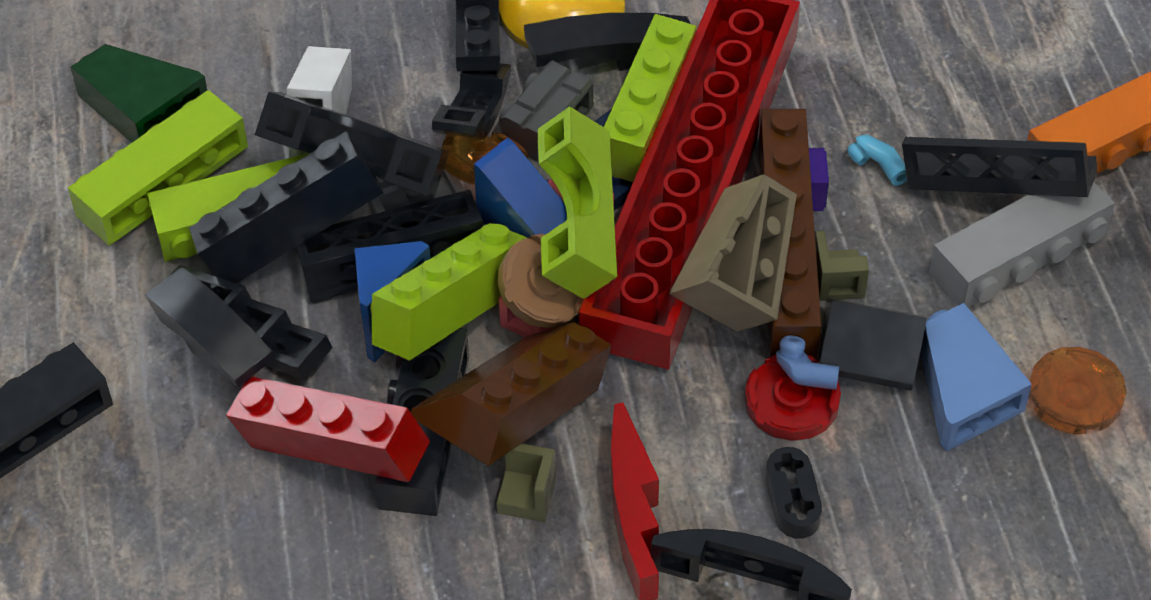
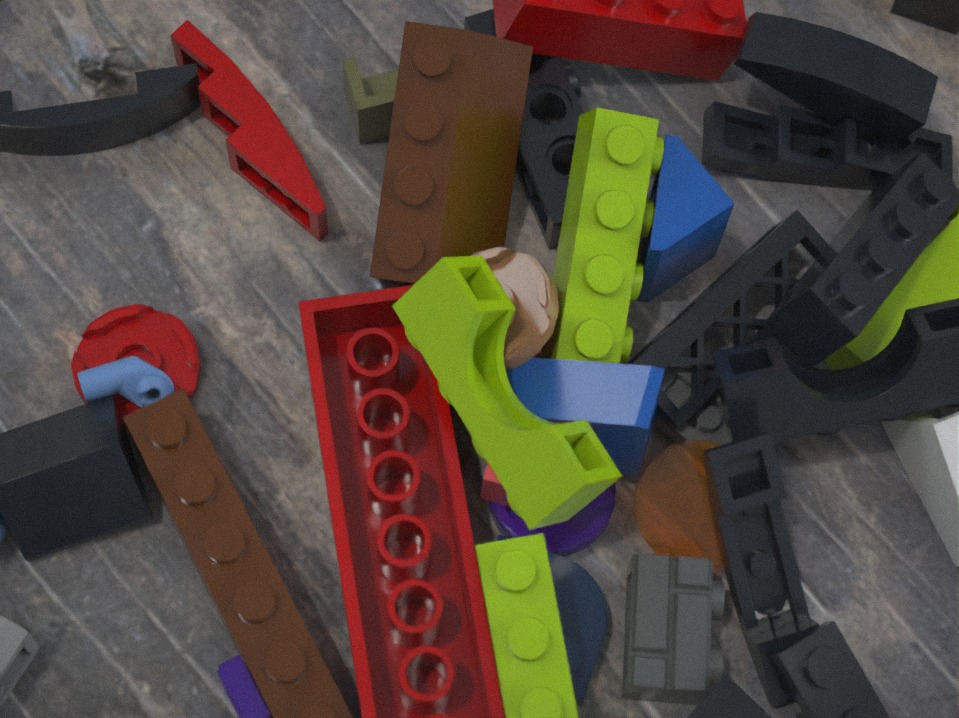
camera: 145 degrees right, 15 degrees up
(741, 255) = (266, 446): dark tan wedge -> none
(803, 490) = (68, 246): black beam -> none
(840, 272) = (154, 571): olive panel -> none

